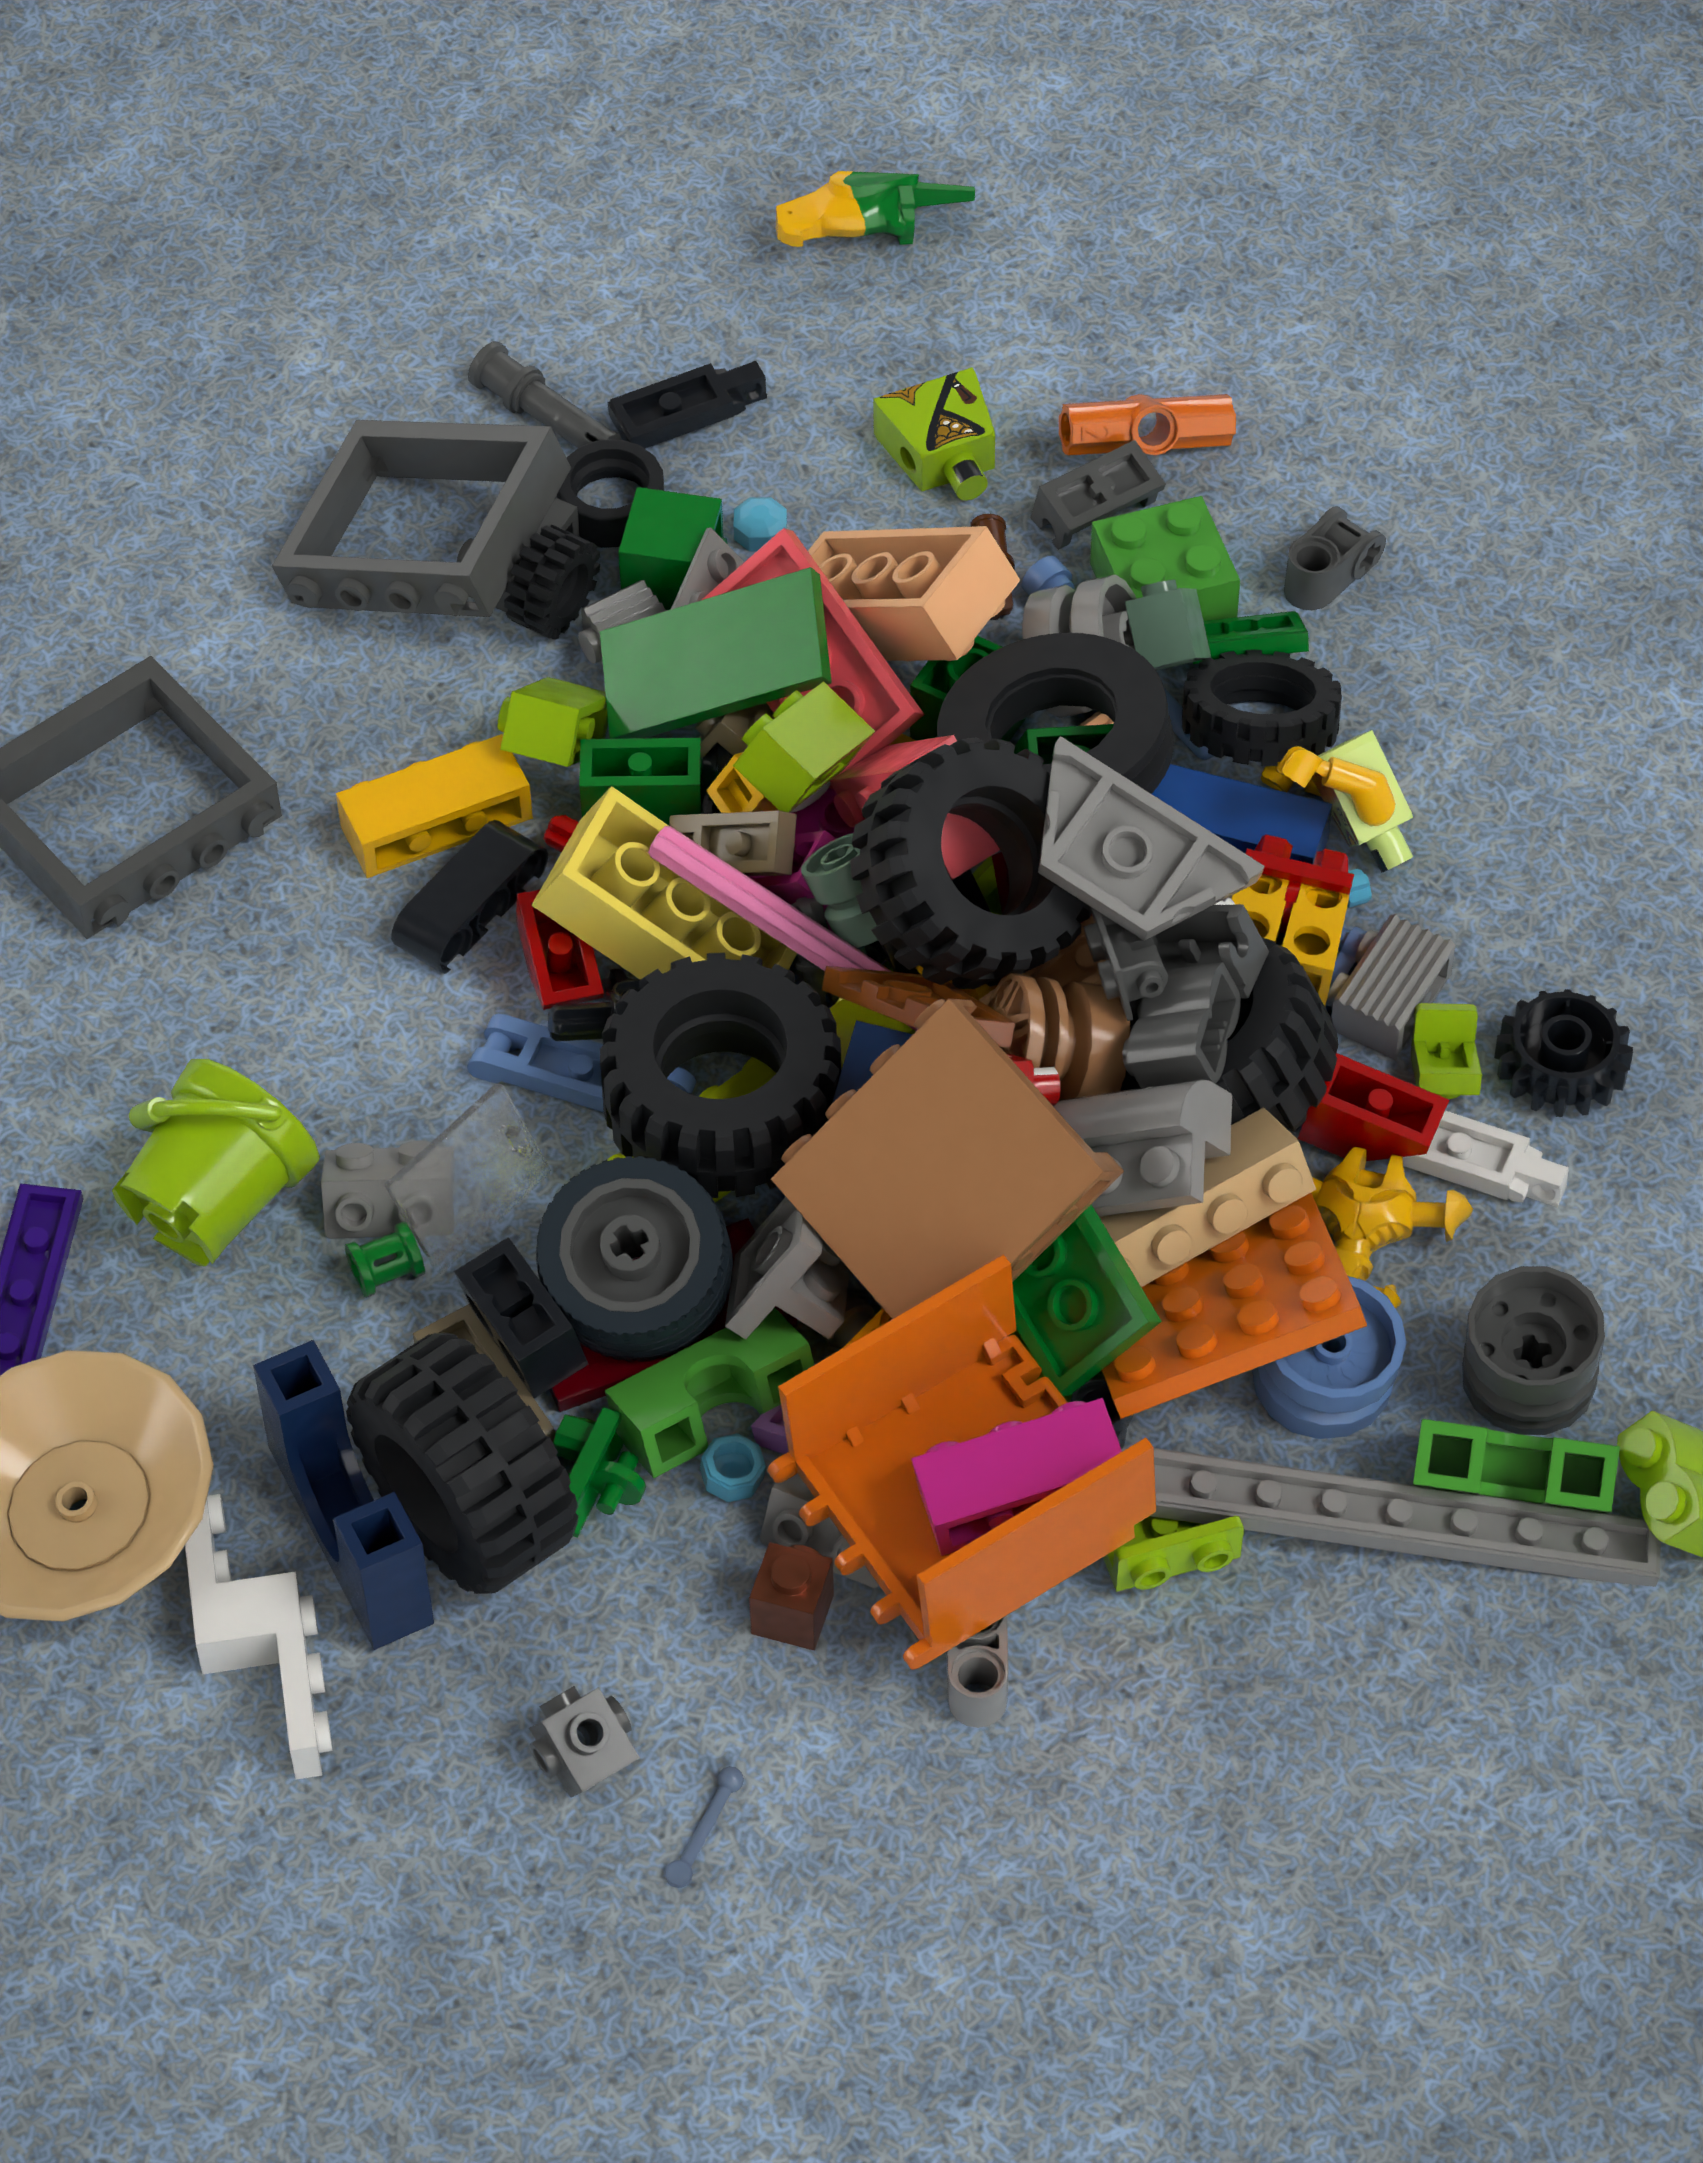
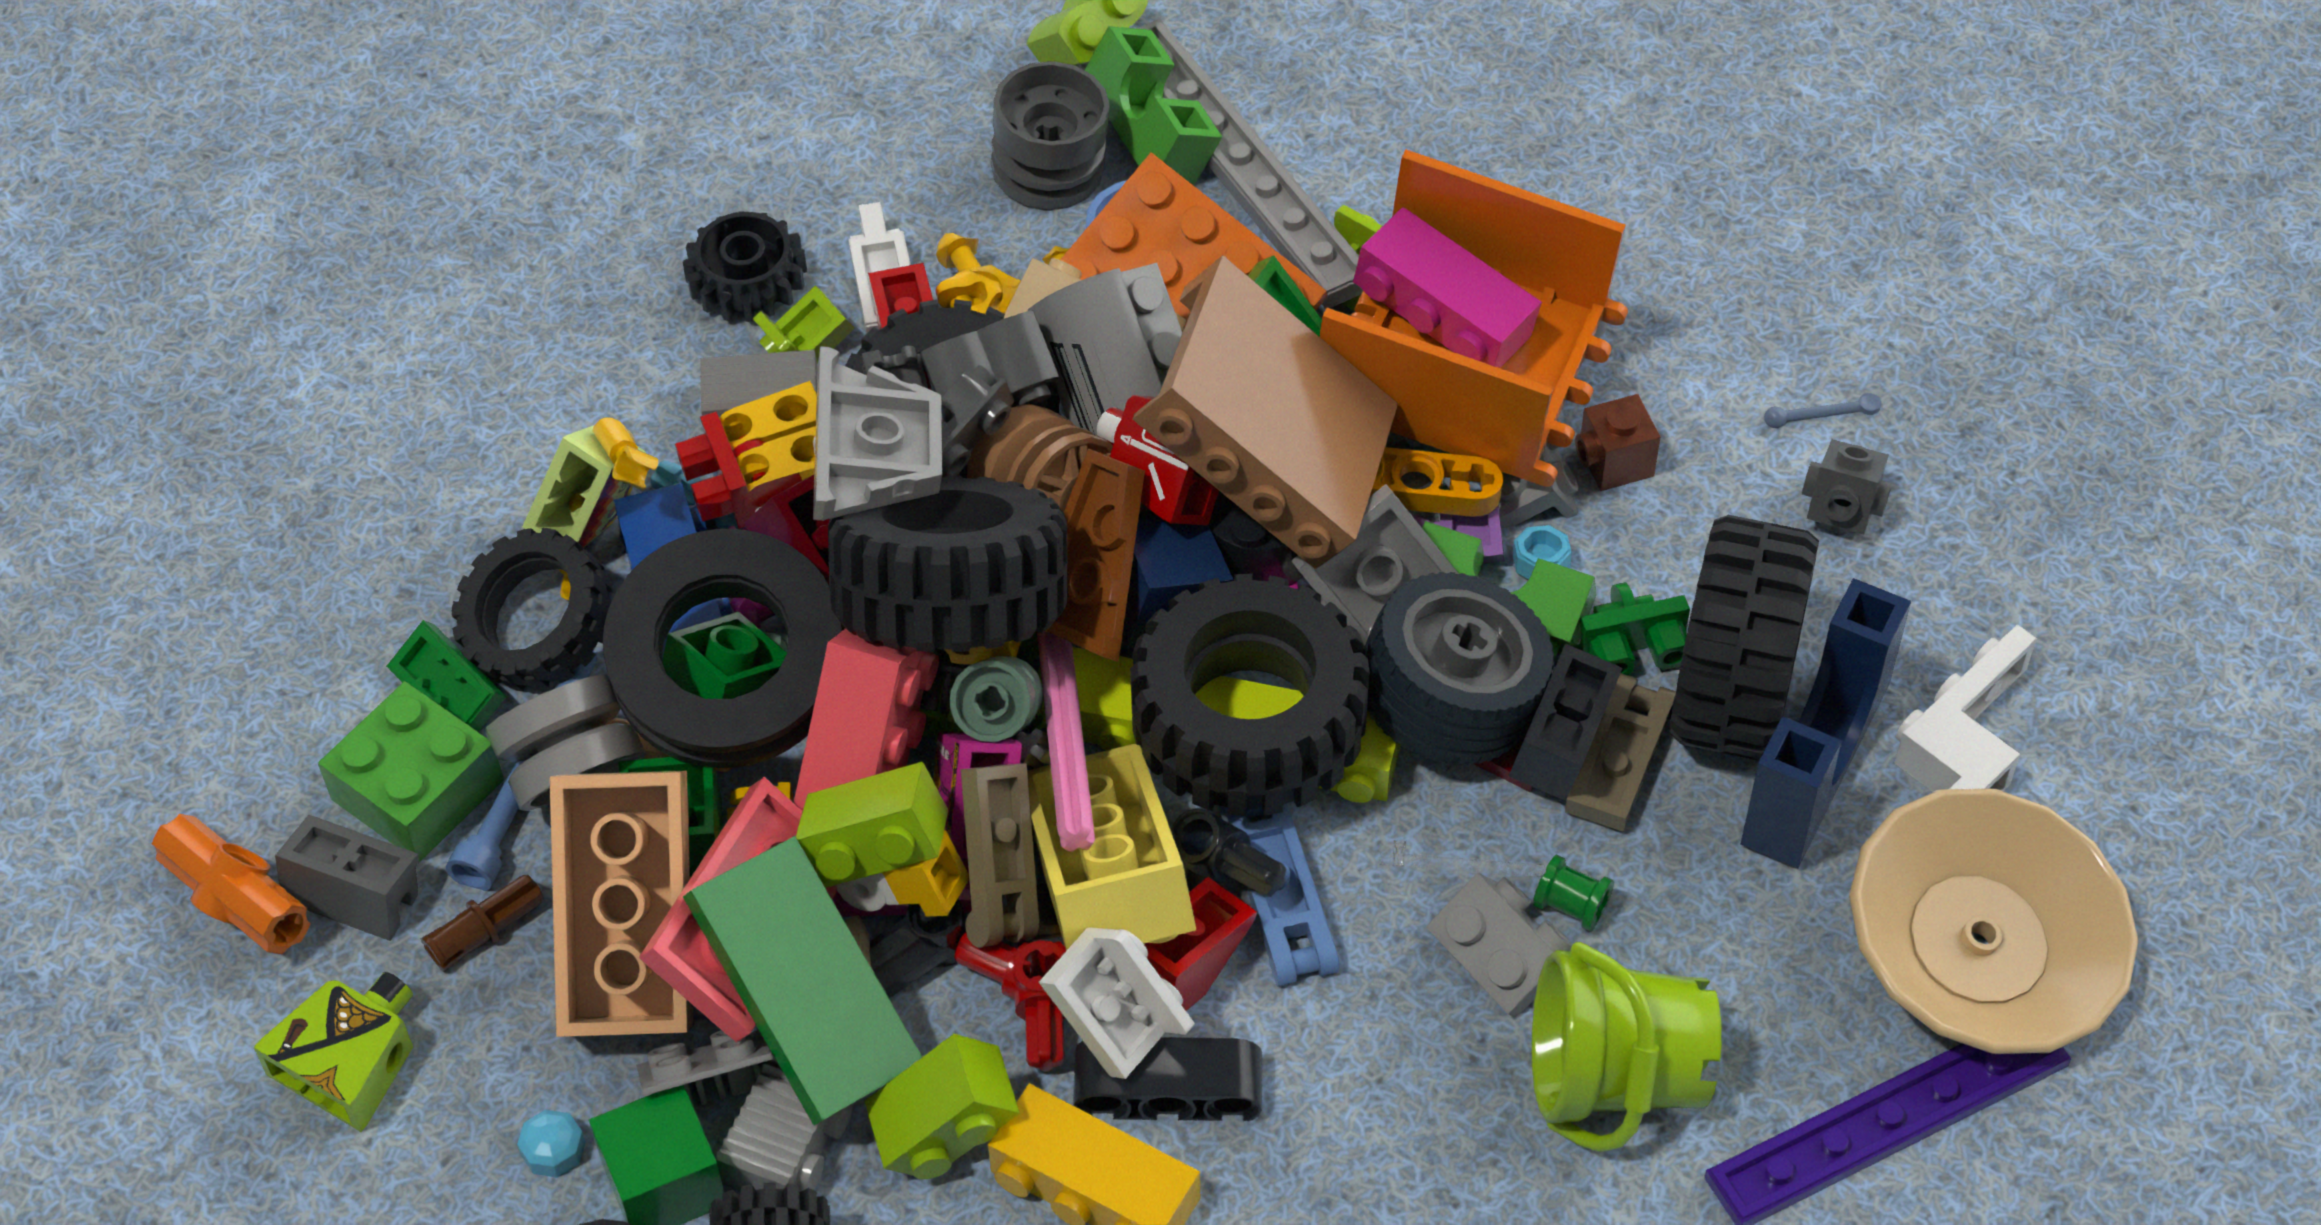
camera: 125 degrees left, 0 degrees up
(525, 830) = (1115, 998): none -> white bracket
(652, 772) = (950, 995): green brick -> none
(1168, 625) = (506, 680): sand green brick -> none
(1329, 560) = (307, 671): dark grey piece -> none

